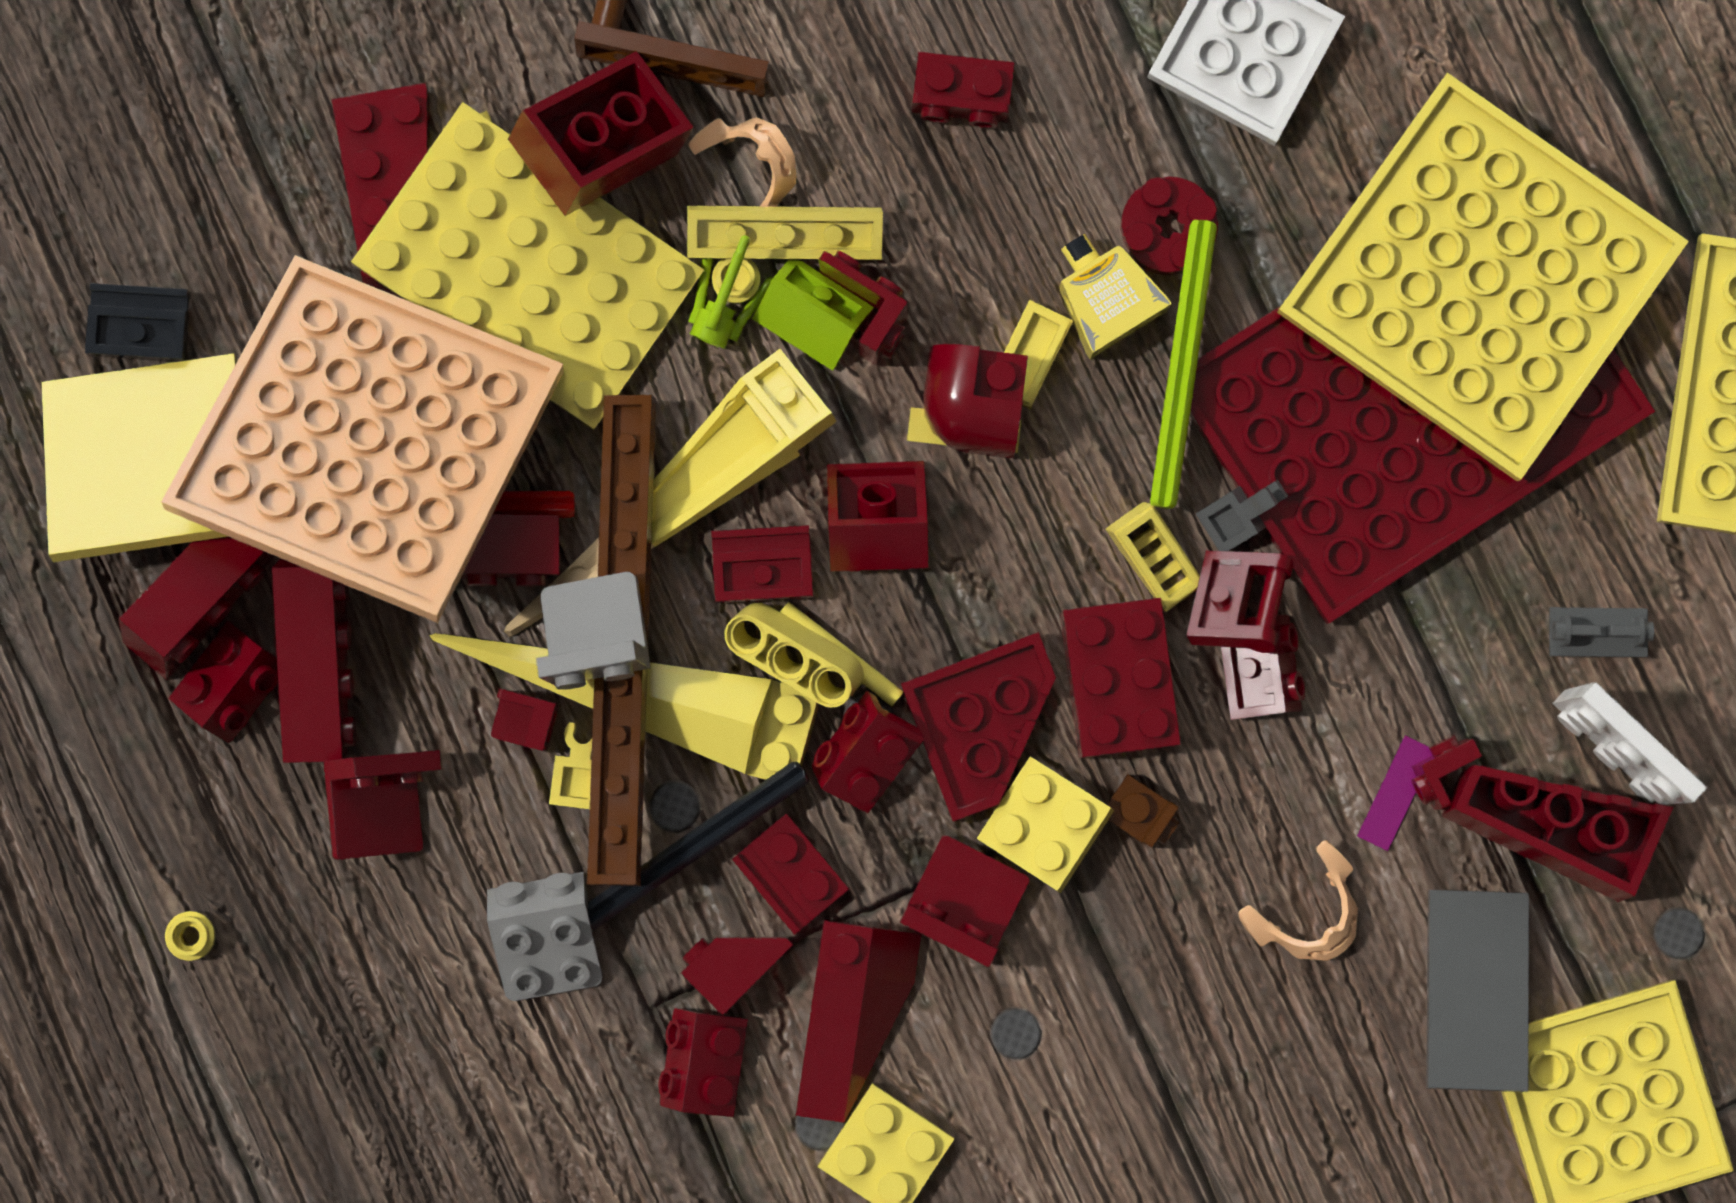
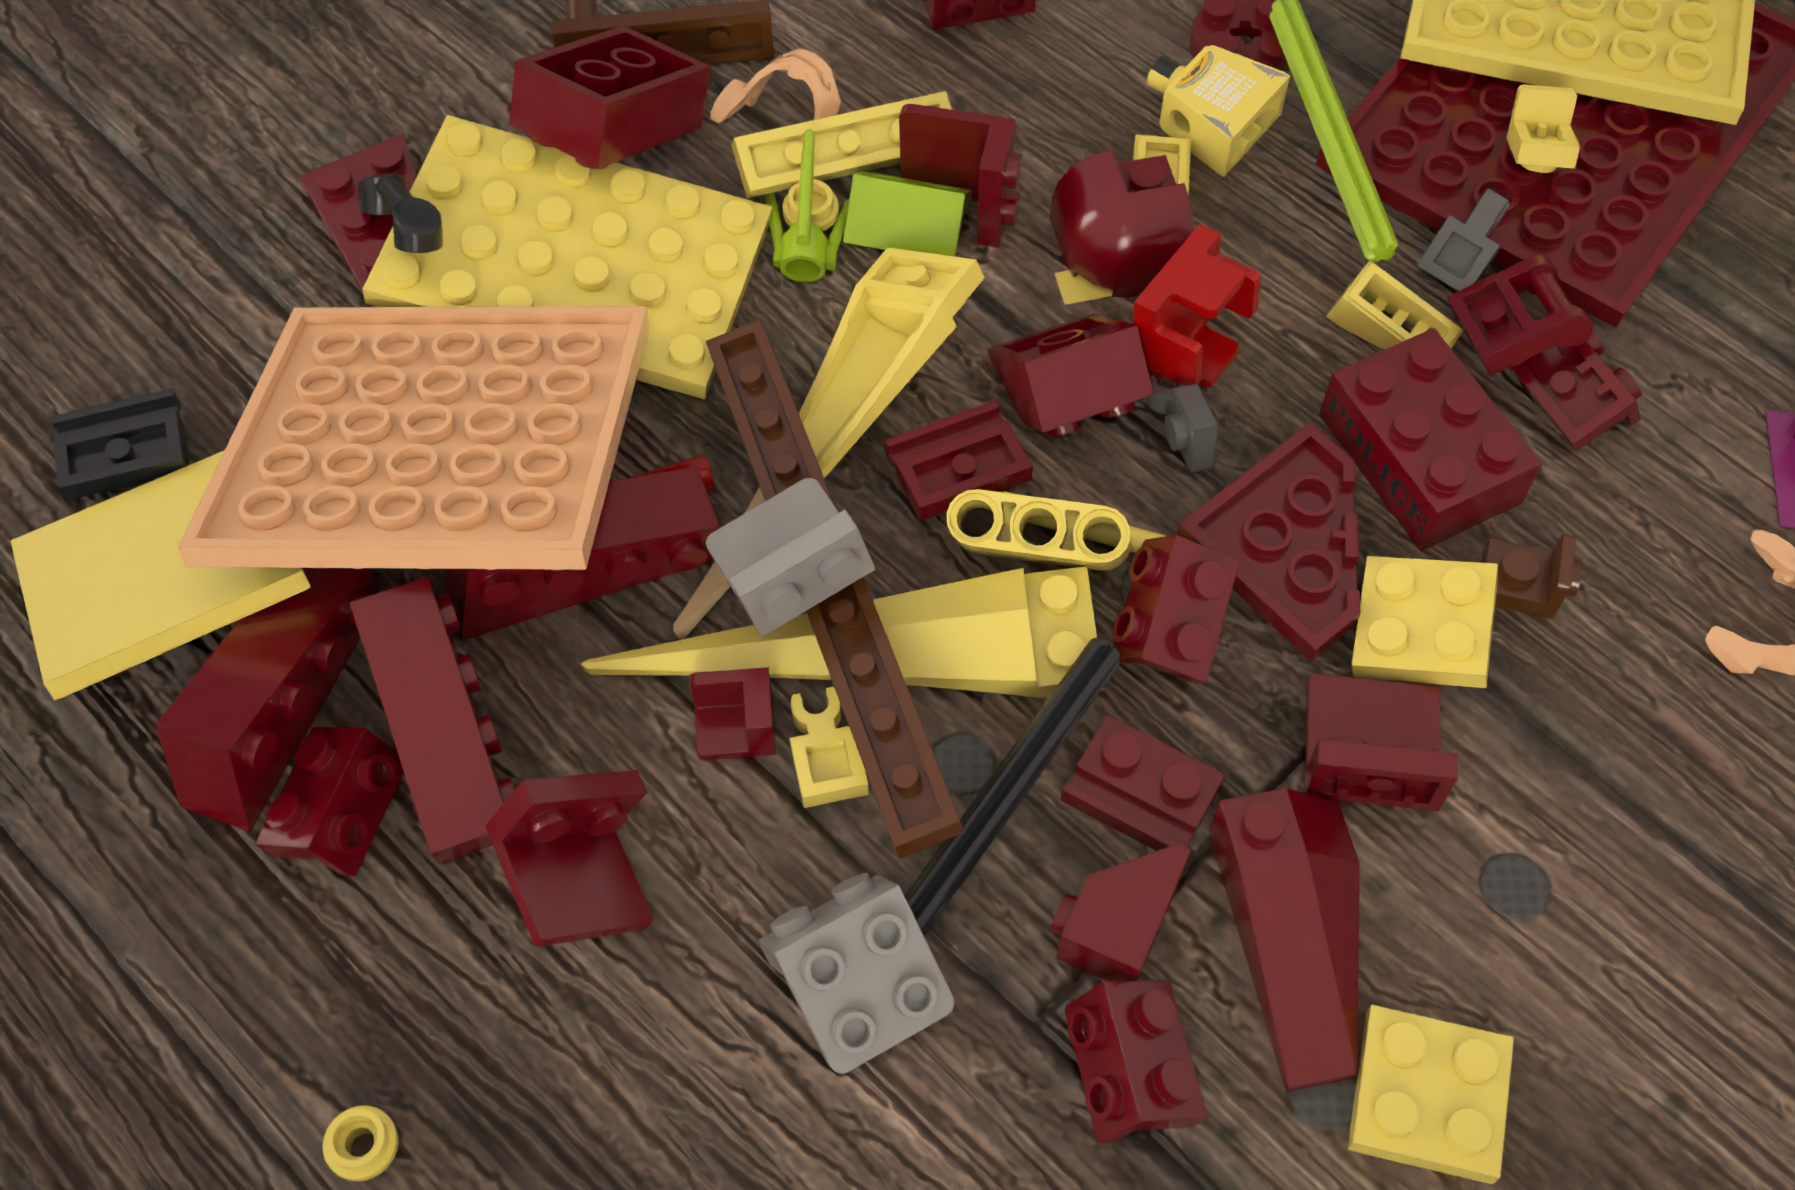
camera: 20 degrees left, 25 degrees down
(405, 226) = (415, 220): none -> black bar
(944, 602) = (1187, 423): none -> dark grey plate
(984, 514) = (1183, 300): none -> red panel
(1346, 441) = (1541, 128): none -> light yellow bracket

